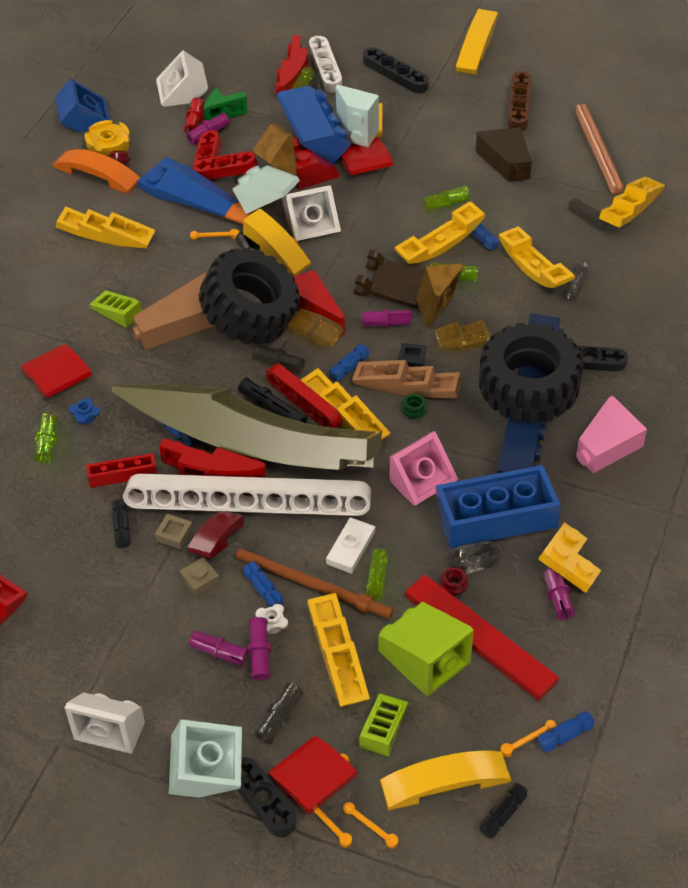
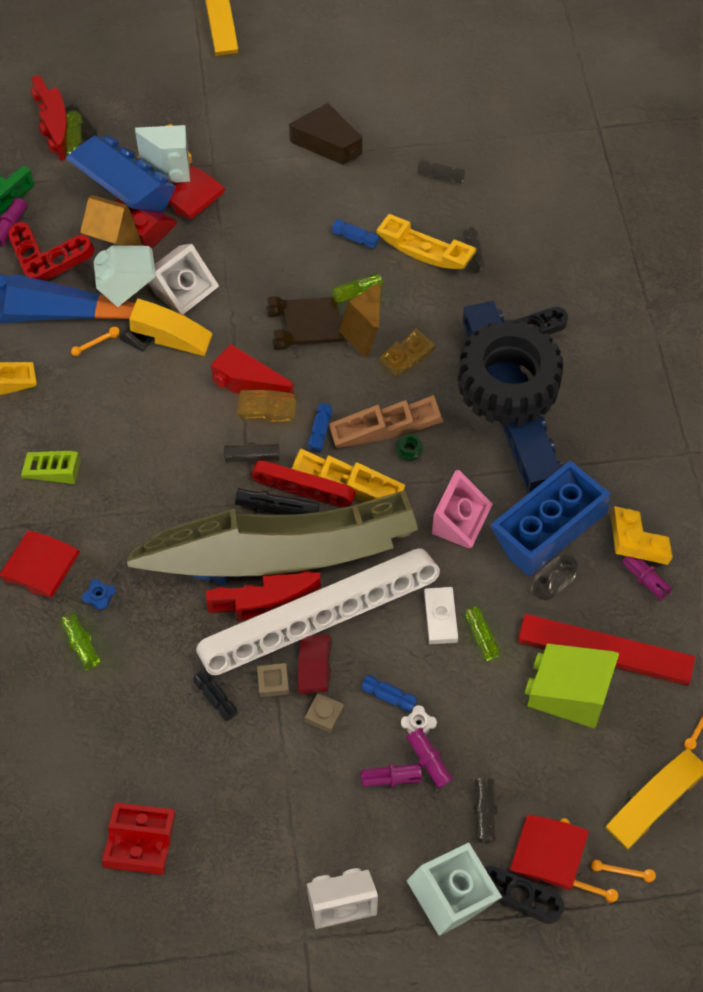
camera: 30 degrees left, 10 degrees up
(119, 470) = (179, 640): red piece -> none
(171, 317) = (126, 445): medium nougat slope -> none
(238, 315) = (181, 423): black tyre -> none
(325, 63) = (83, 94): white beam -> none
(338, 650) = (497, 725): yellow slope -> none
(362, 602) = (489, 667): dark orange bar -> none
(377, 61) = (129, 73): black beam -> none
(377, 743) = (583, 795): lime slope -> none
(386, 318) = (324, 365): magenta axle -> none
(413, 354) = (375, 394): black plate -> none
(443, 238) = (323, 253): yellow slope -> none
(446, 198) = (299, 208): clear neon green axle -> none
(454, 575) = (553, 601): dark red plate -> none
(519, 100) = (299, 69): reddish brown beam -> none
(599, 149) = (408, 95): nougat axle -> none
(610, 436) = (599, 401): bright pink slope -> none
(632, 202) = (475, 144): yellow slope -> none

